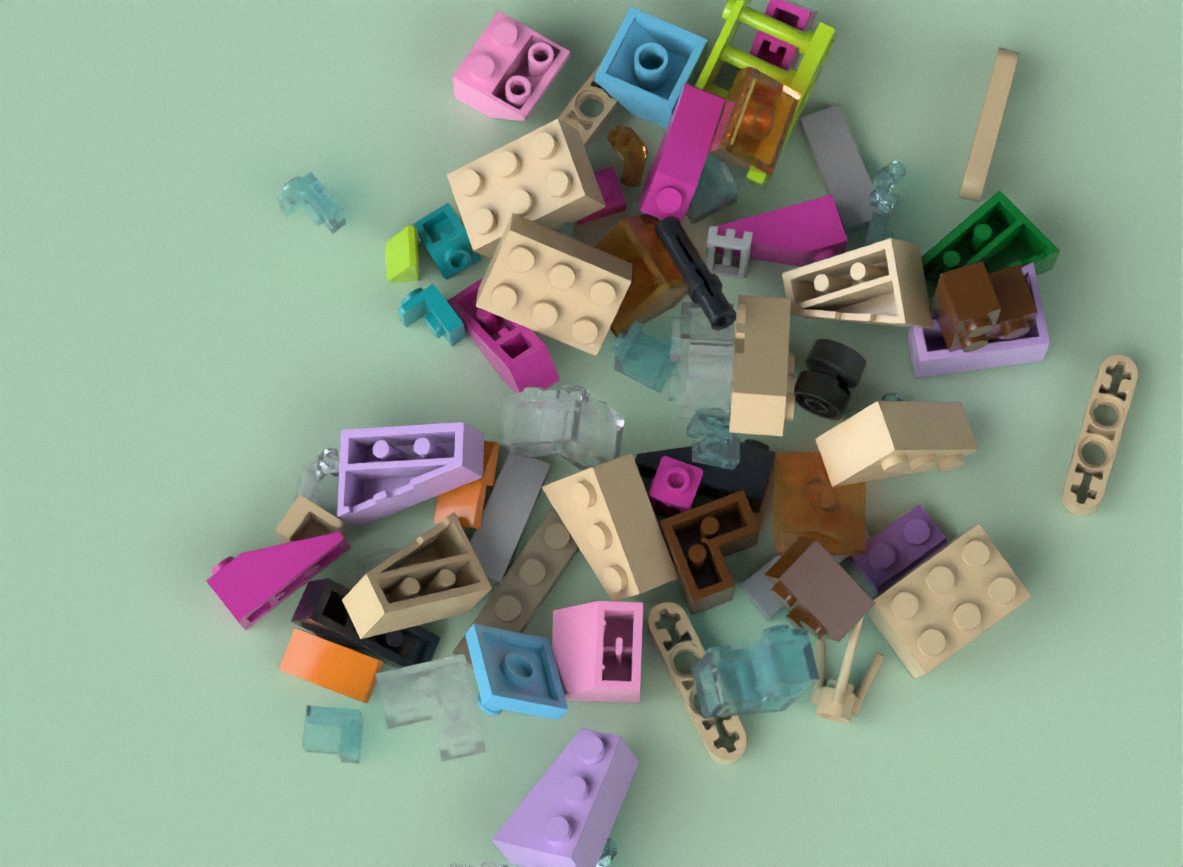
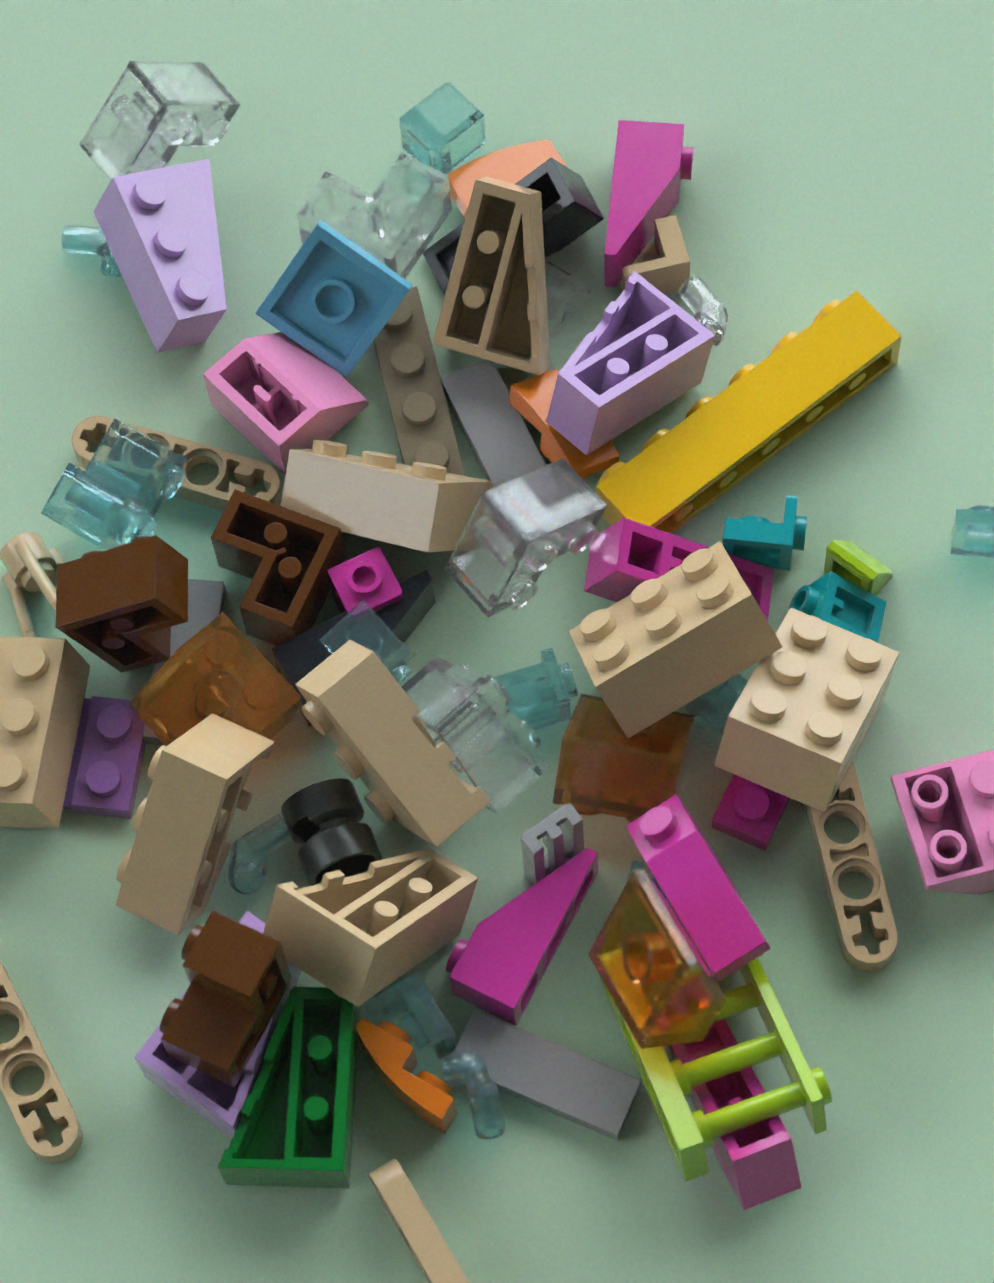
camera: 140 degrees right, 5 degrees down
(367, 384) = (752, 417): none -> yellow brick
(631, 151) = (767, 882): clear orange arm -> none
(651, 65) = (836, 963): medium azure slope -> none
(702, 285) = (552, 773): black pin -> none
(914, 214) = (394, 1061): none -> orange slope

